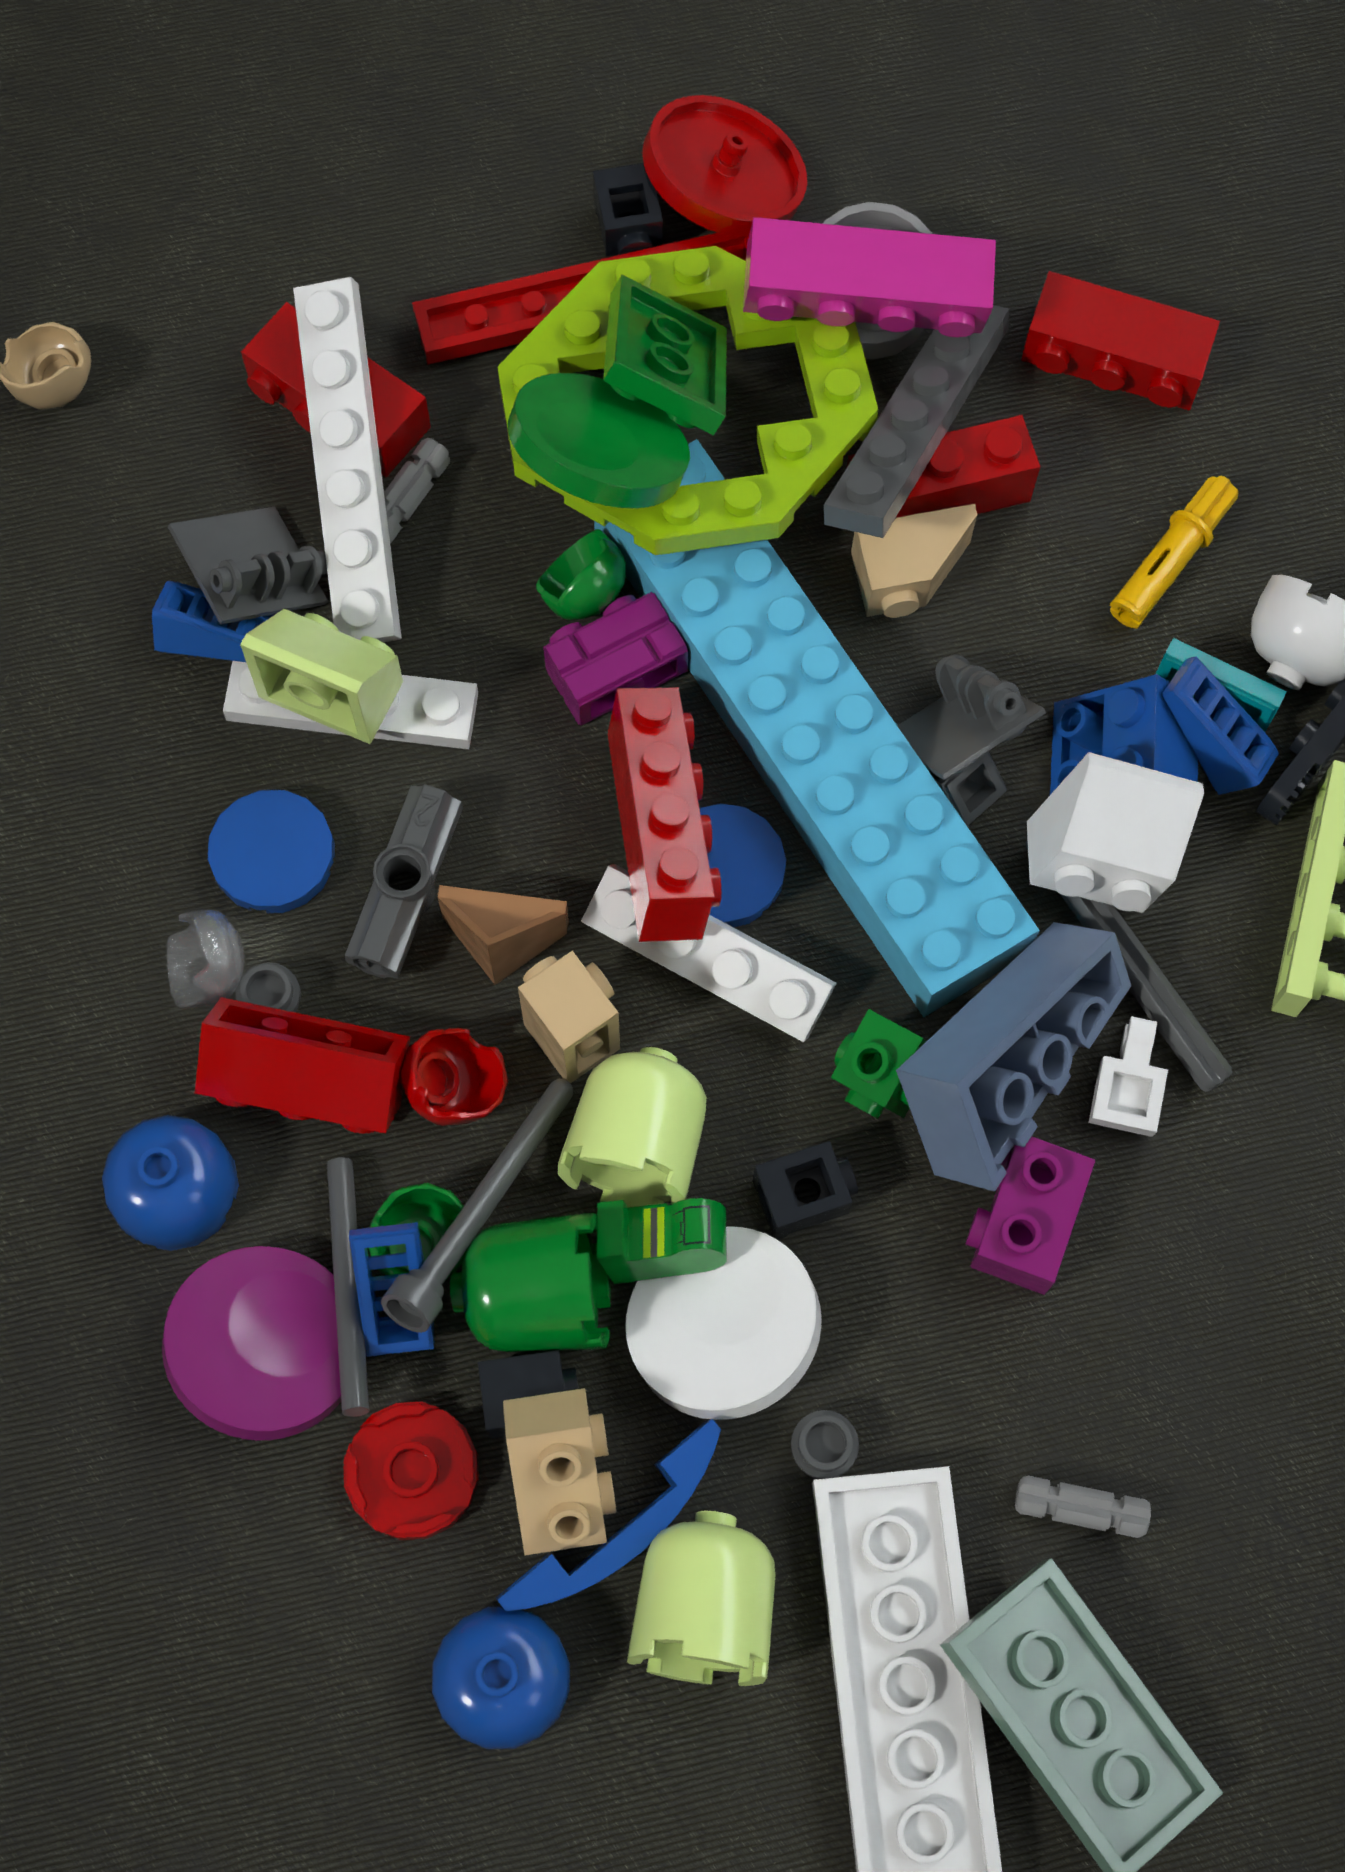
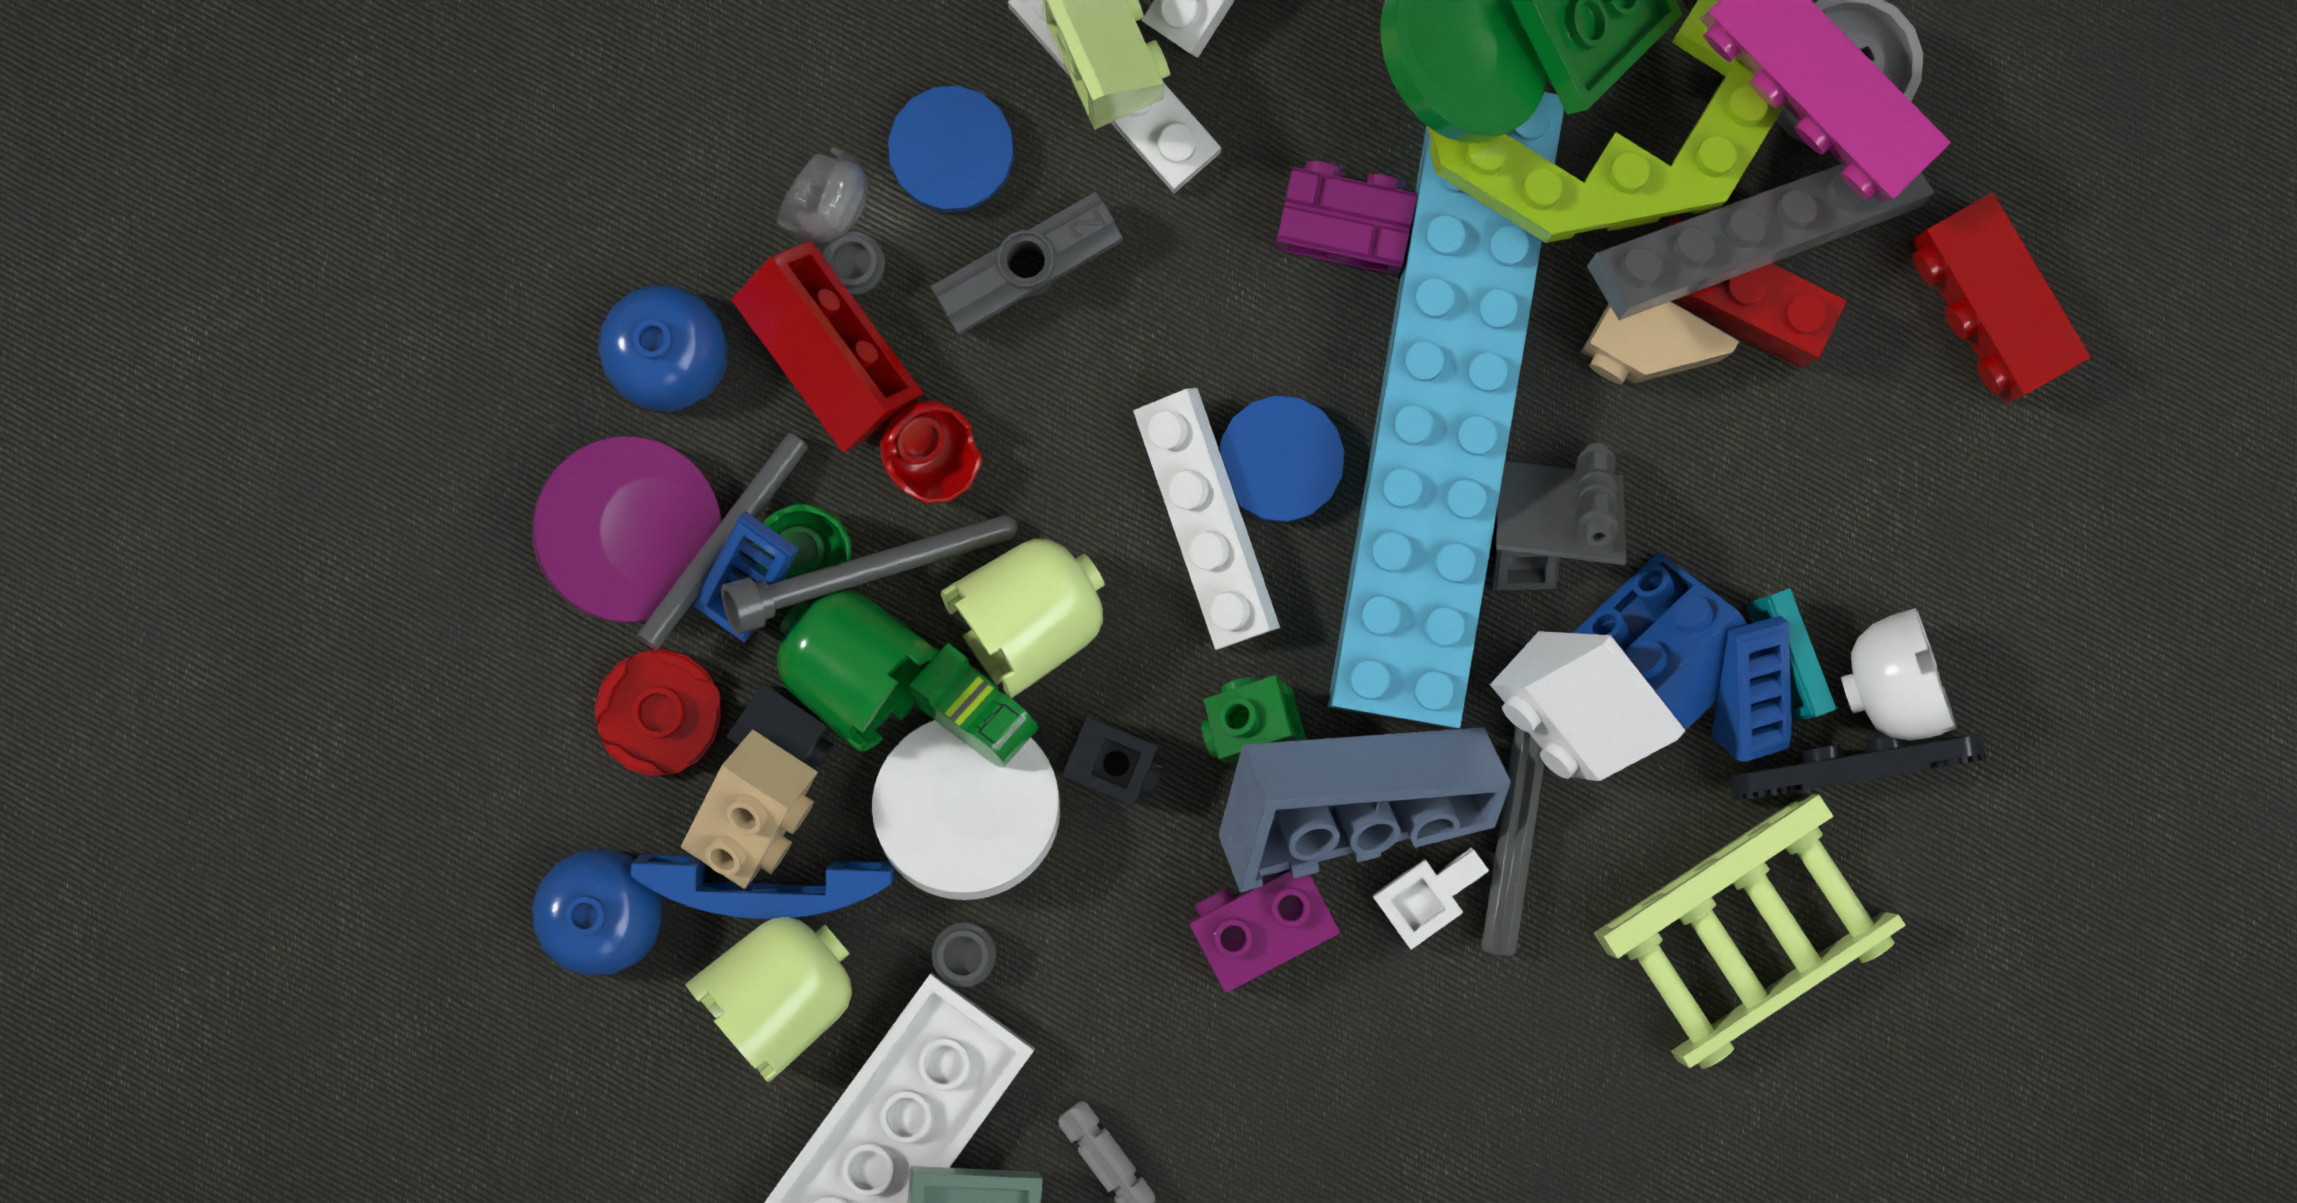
camera: 40 degrees right, 15 degrees up
(501, 927) = (1065, 367): medium nougat slope -> none
(570, 1014) = (1053, 481): tan brick -> none
(584, 577) = (1376, 133): green hair -> none
(661, 815) = (1258, 384): brick -> none
(1187, 533) = (1872, 512): yellow axle -> none

